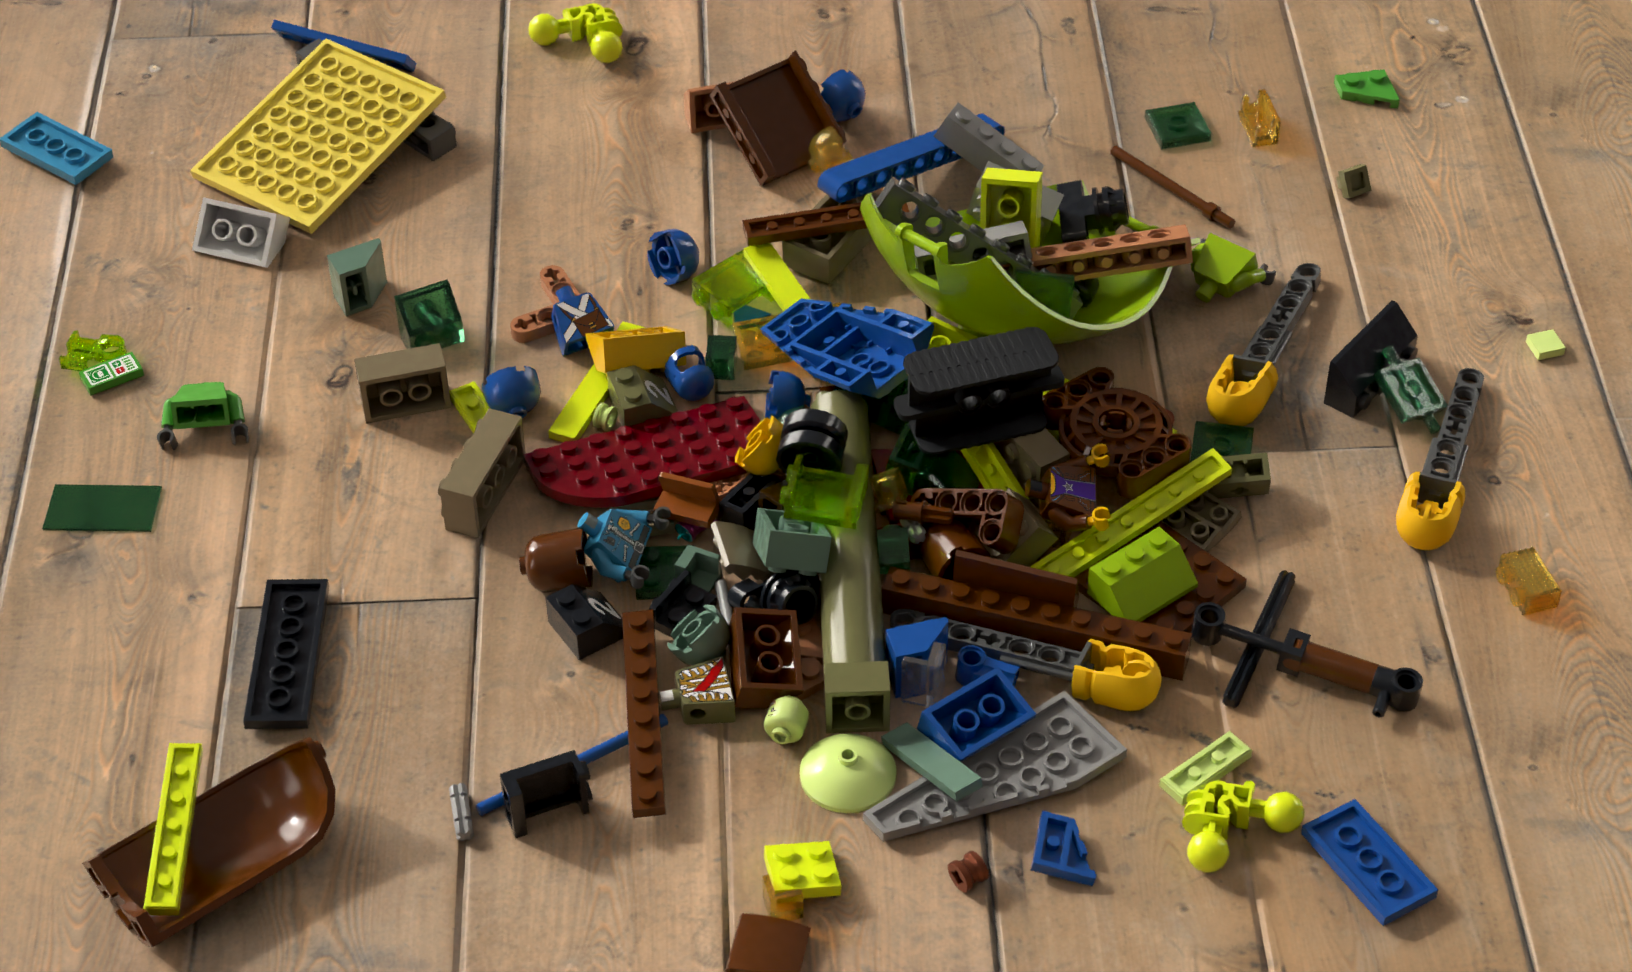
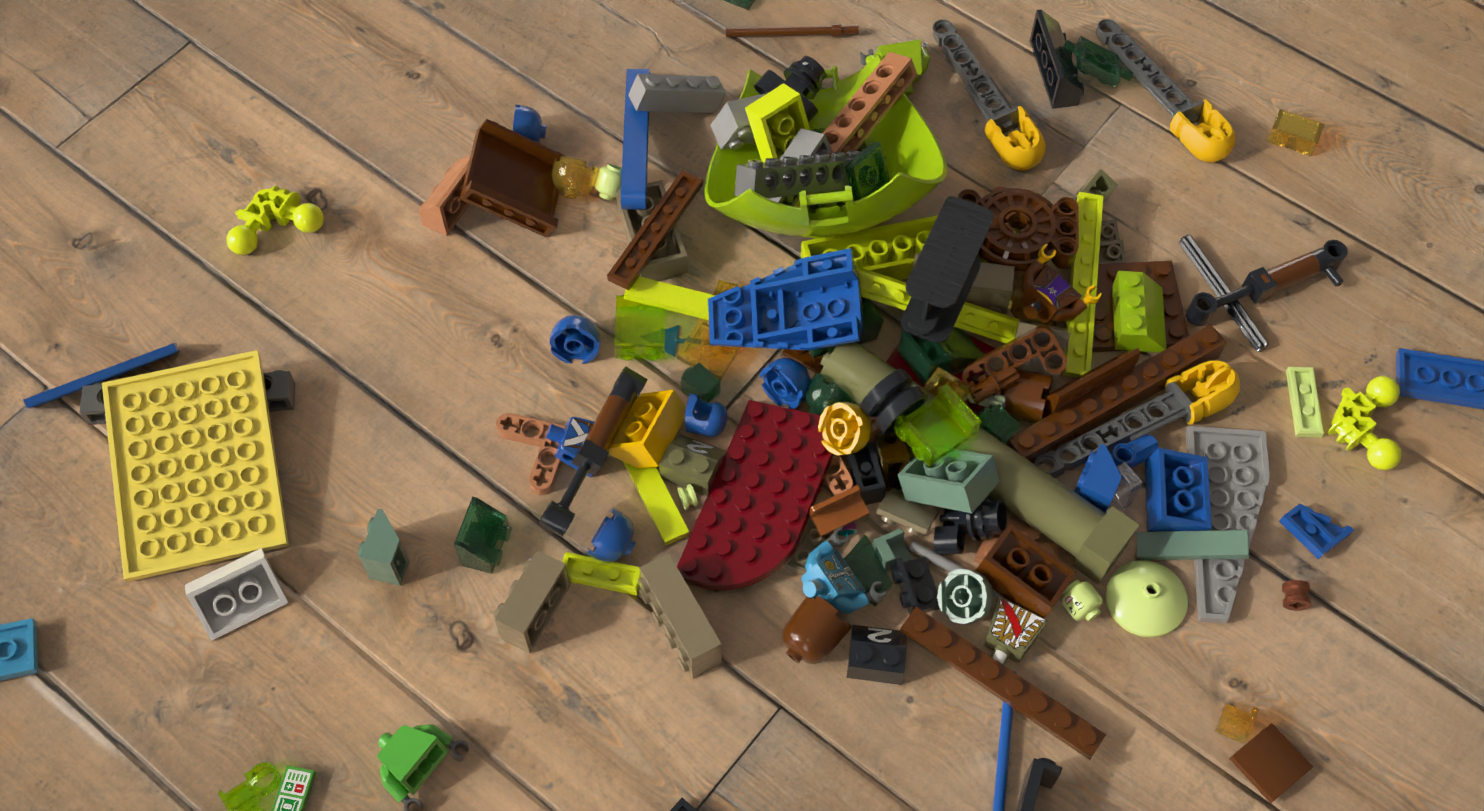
camera: 50 degrees left, 15 degrees up
(568, 322) = (595, 446): none -> black piece
(803, 867) = (1220, 690): neon yellow plate -> none
(1224, 438) = (1047, 181): clear green tile -> none

